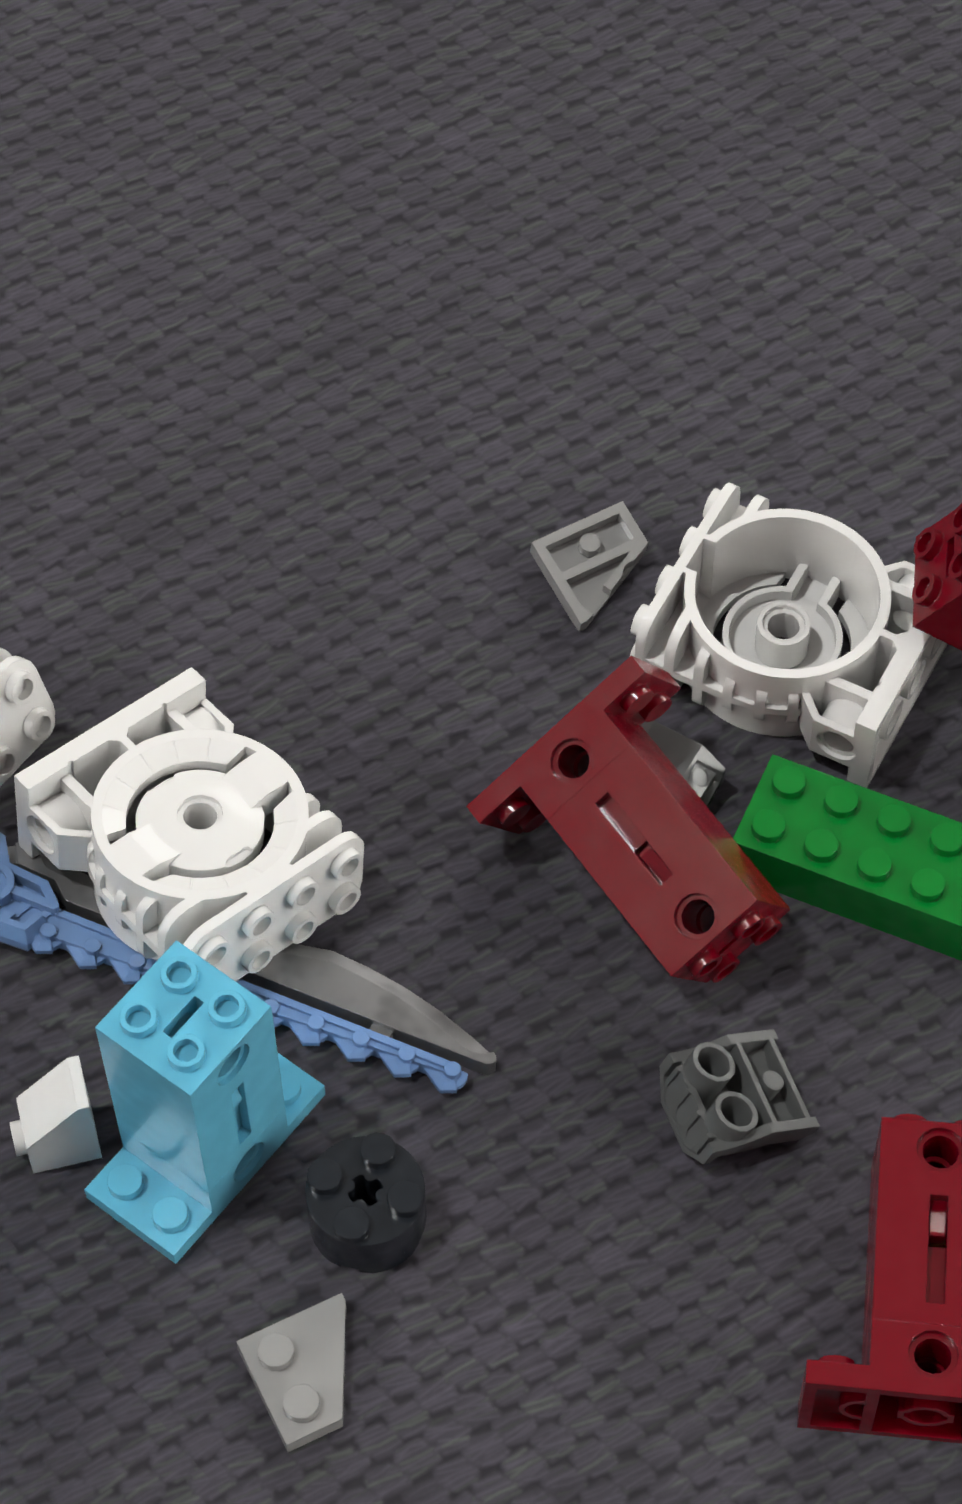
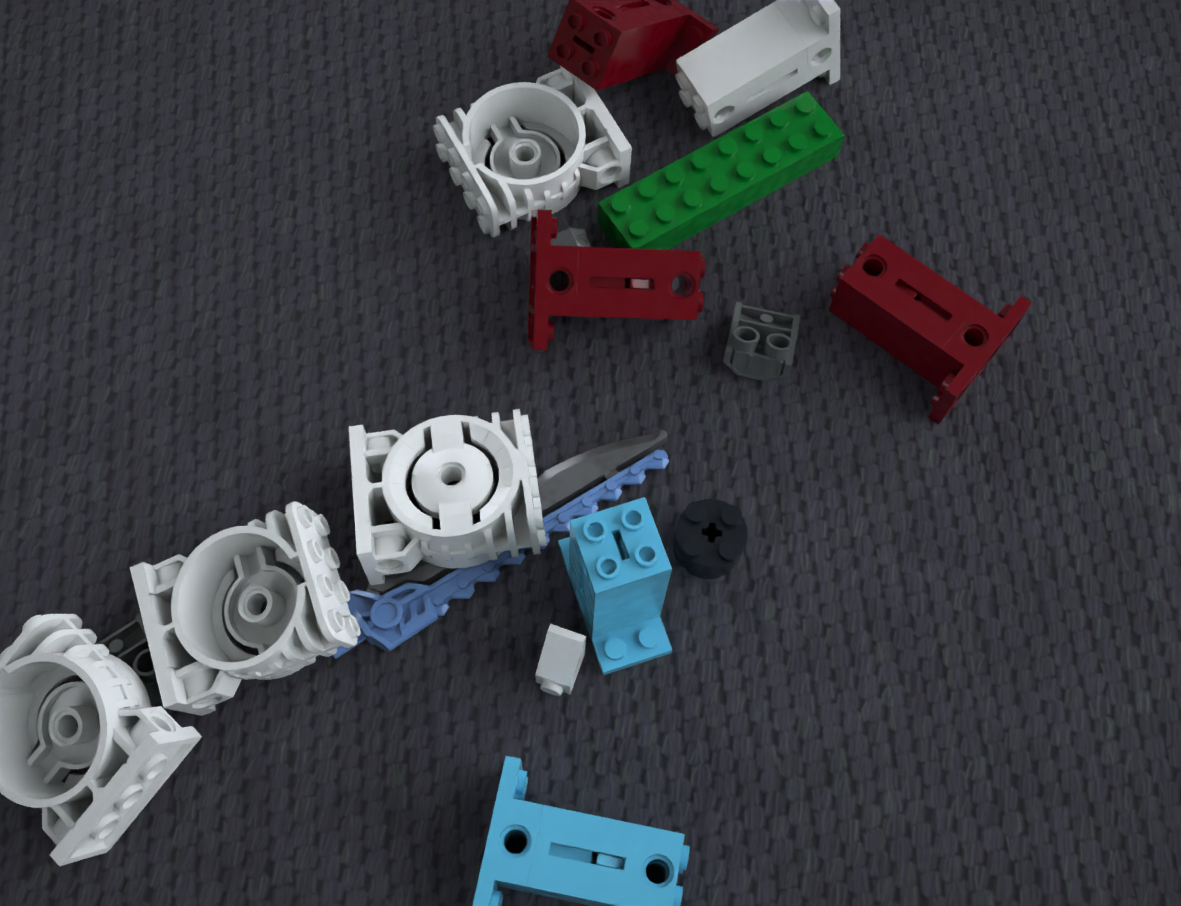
camera: 60 degrees left, 10 degrees up
(301, 1371) = (774, 626): light grey wing -> none
(590, 560) = (411, 213): light grey wing -> none

